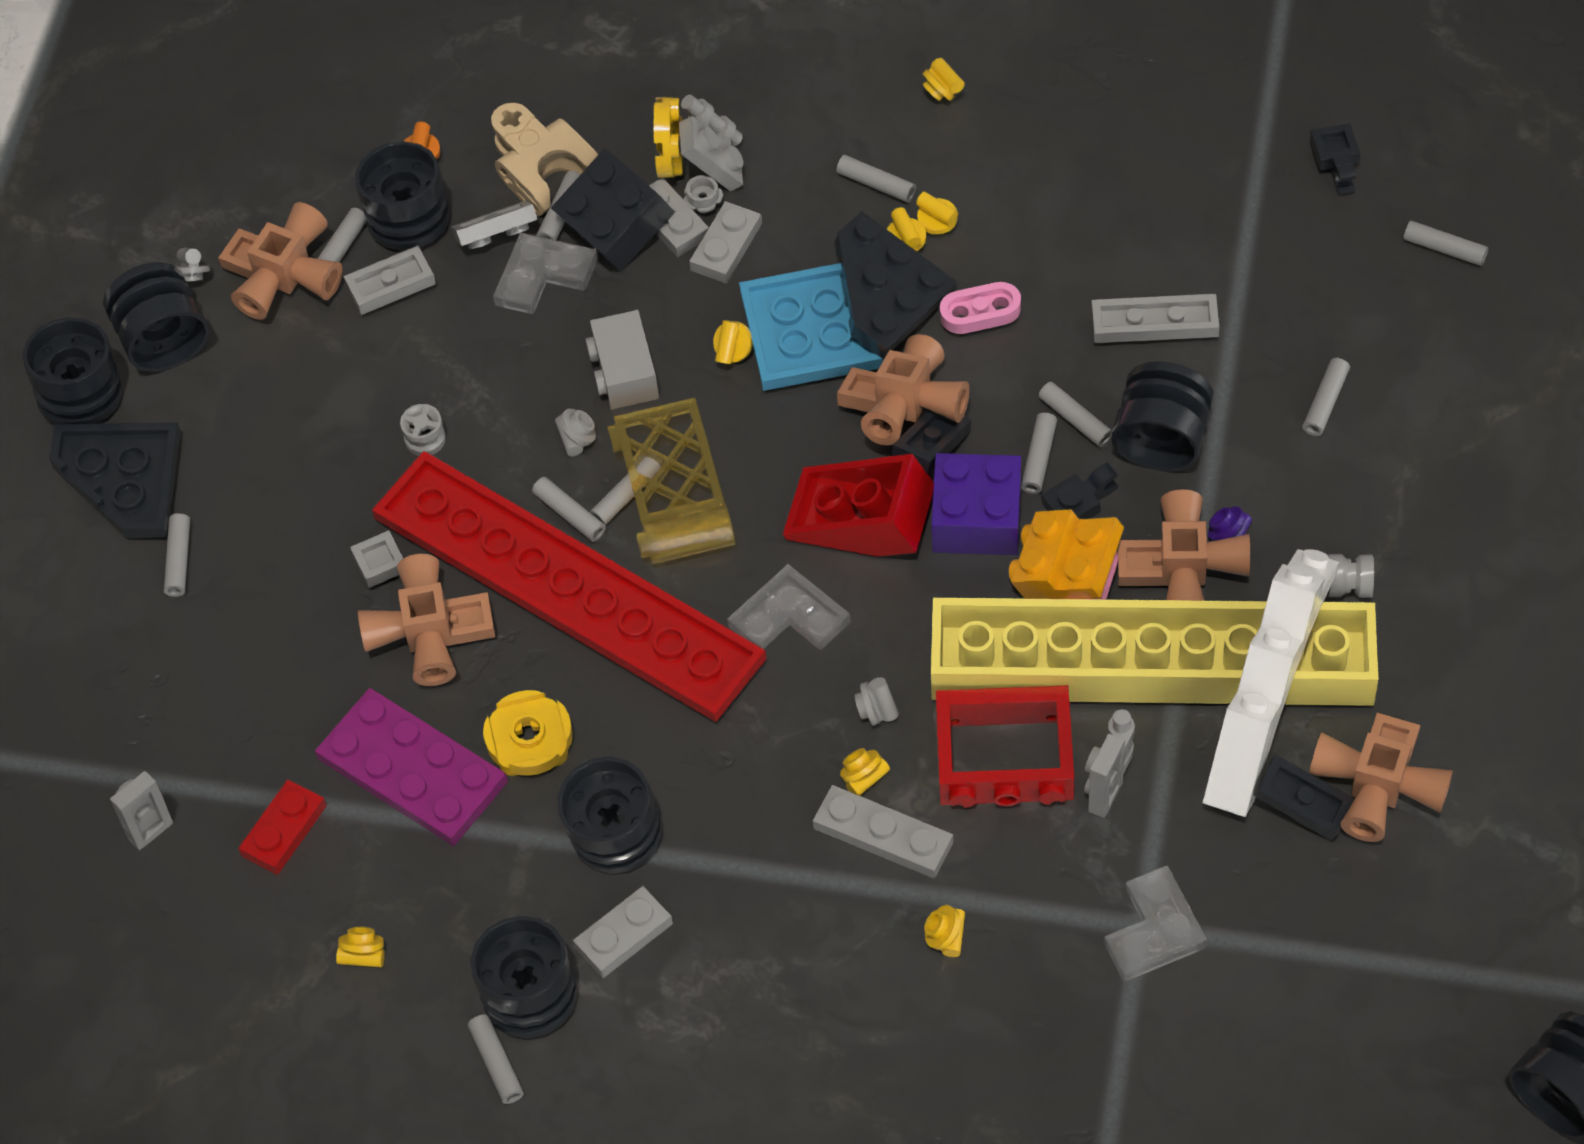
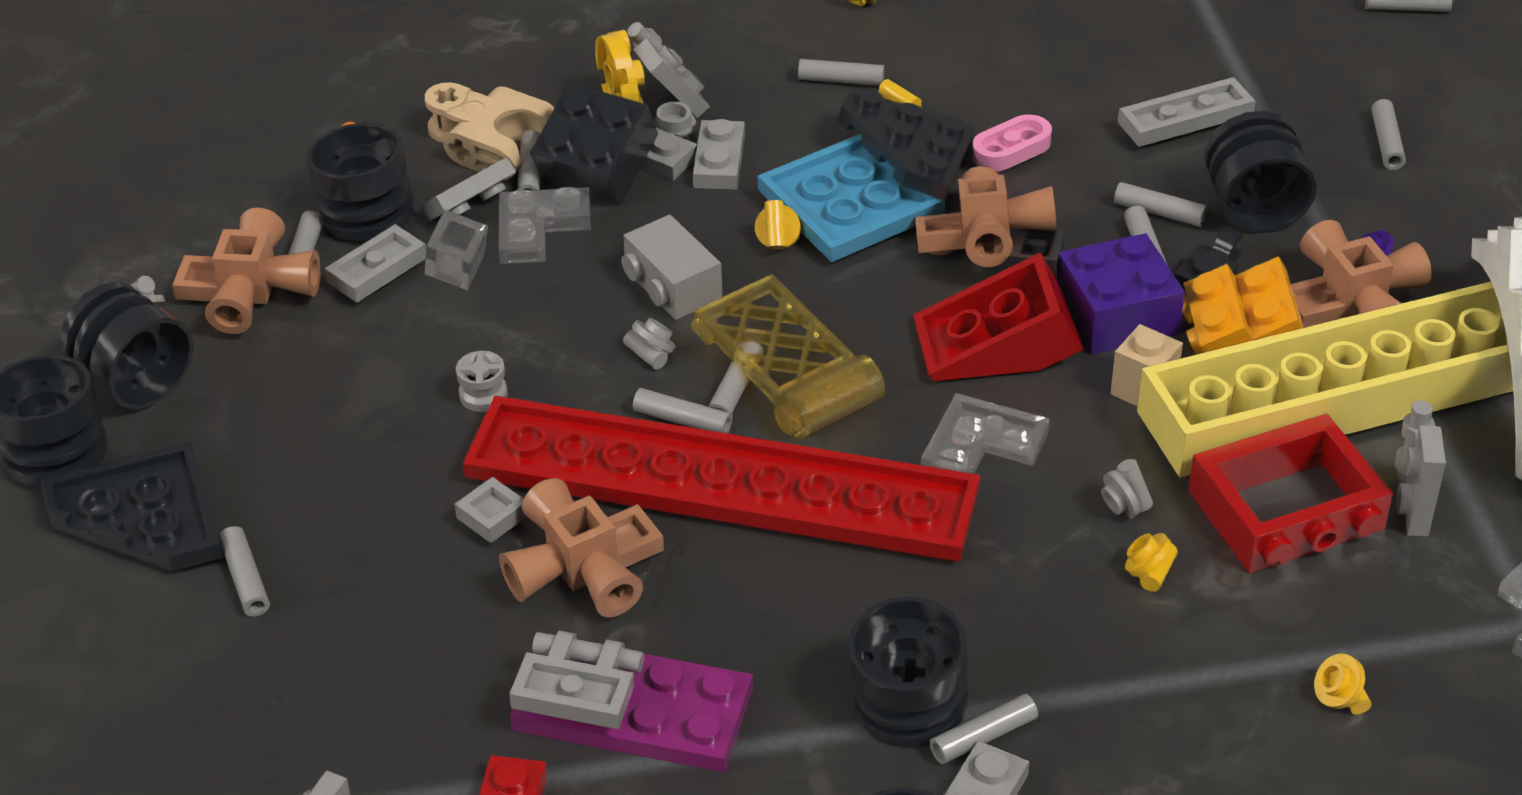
camera: 25 degrees left, 15 degrees down
(360, 750) = (572, 689): none -> light grey plate
(451, 292) = (455, 249): none -> clear brick
(530, 756) = (760, 652): yellow plate -> none
(655, 875) = (983, 728): none -> light grey piece
(883, 831) = (1209, 612): light grey plate -> none
(936, 214) = (921, 81): yellow plate -> none
(955, 579) = (1140, 350): none -> tan brick

